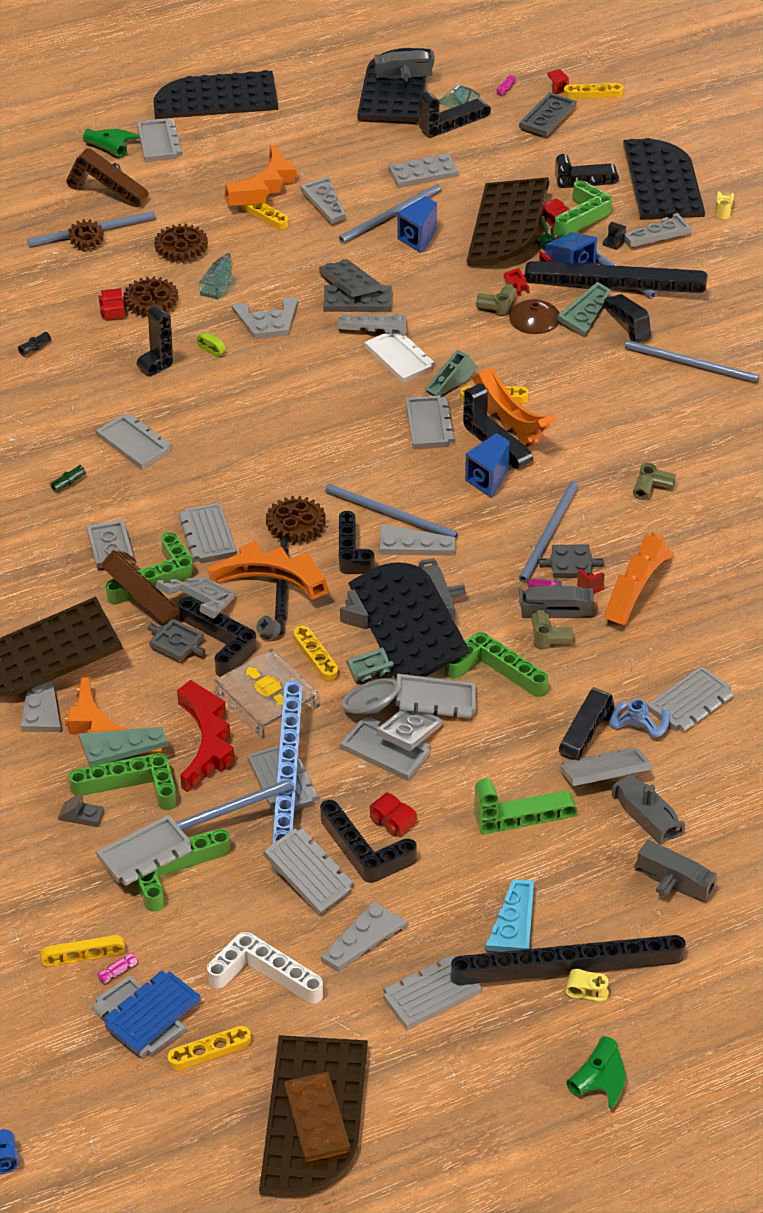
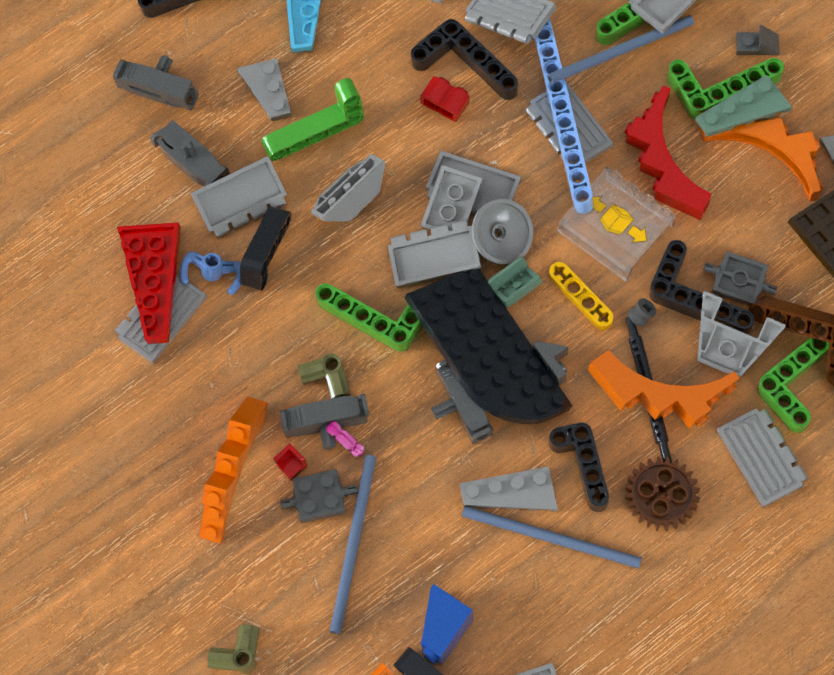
camera: 175 degrees right, 25 degrees up
(505, 752) = (351, 191): none -> light grey wedge
(563, 860) = (267, 86): none -> light grey wing
(693, 724) = (152, 268): none -> red wing

